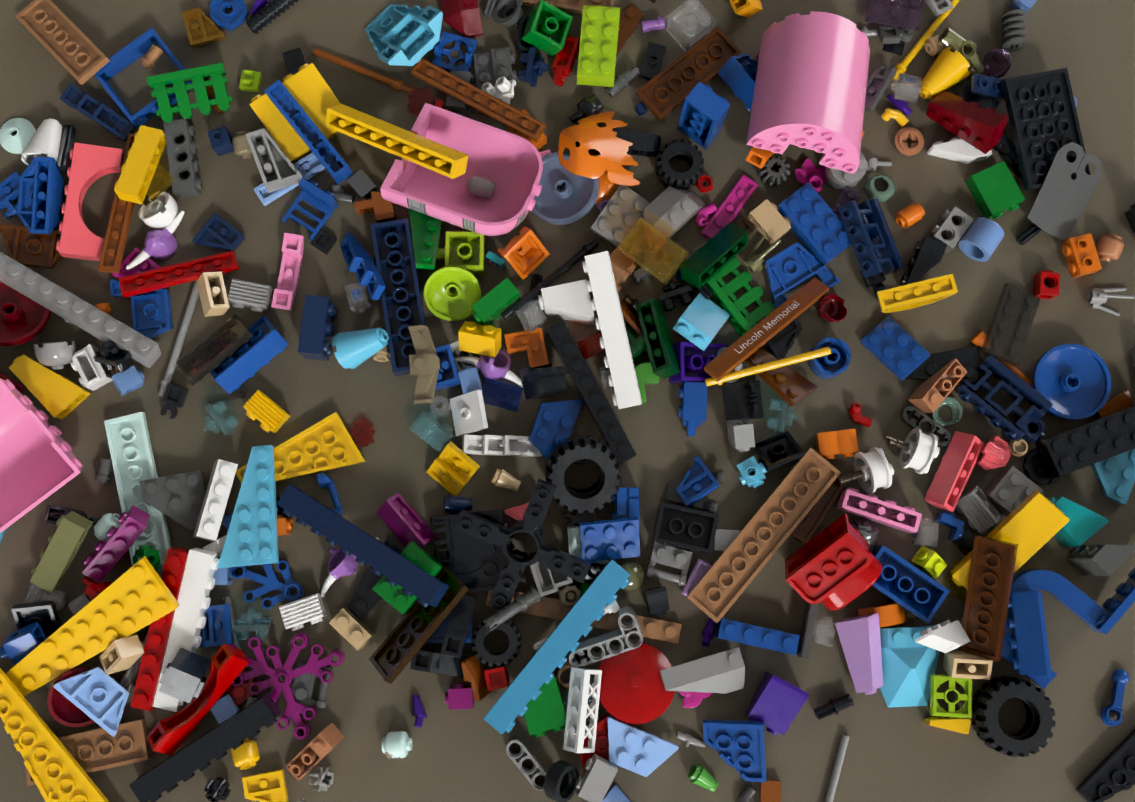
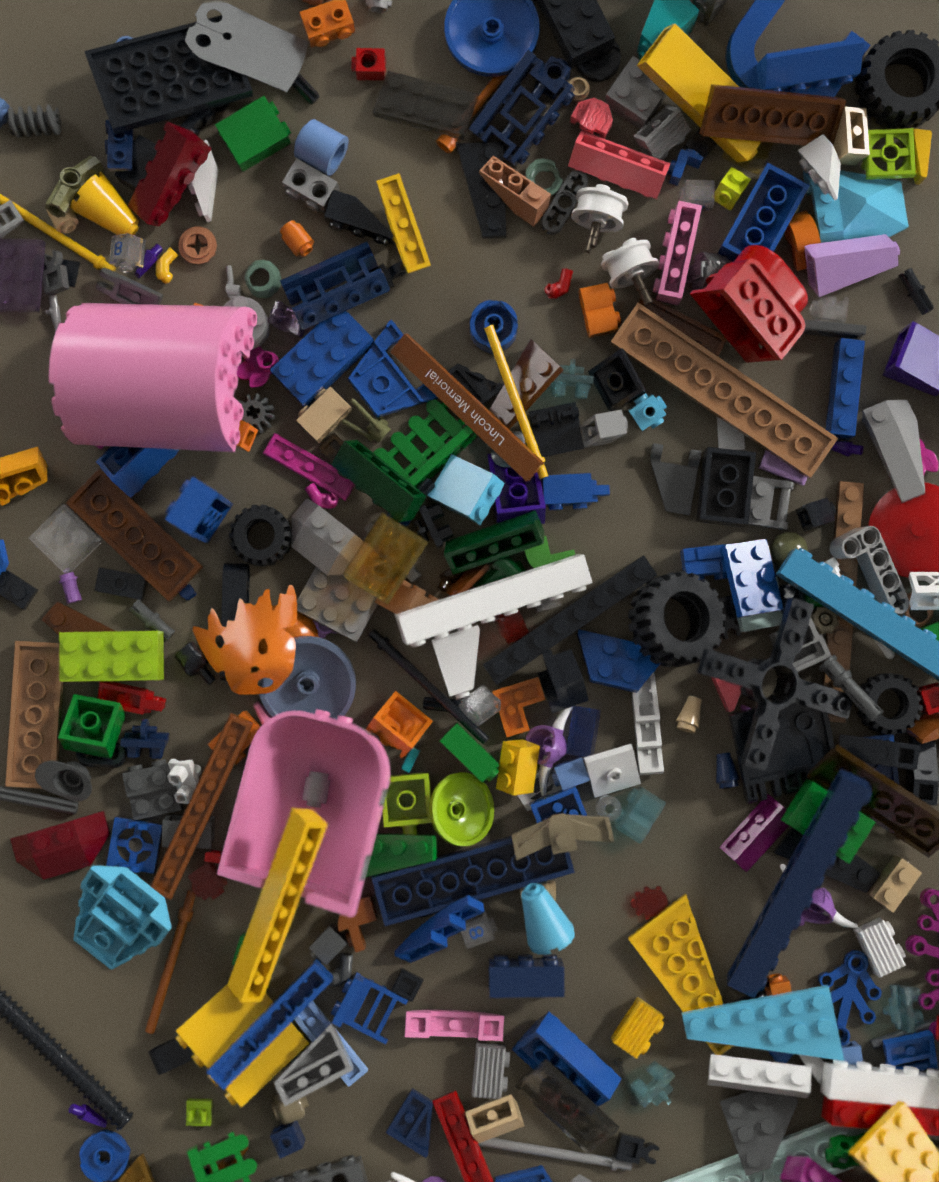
camera: 90 degrees left, 5 degrees up
(325, 481) = (716, 941): blue bar -> none
(453, 469) = (683, 782): yellow slope -> none
(696, 483) = (668, 478): blue wing -> none
(704, 179) = (280, 495): red plate -> none
(832, 308) = (429, 327): dark red hair -> none
(895, 348) = (471, 246): blue plate -> none
(997, 62) = (81, 139): hair -> none

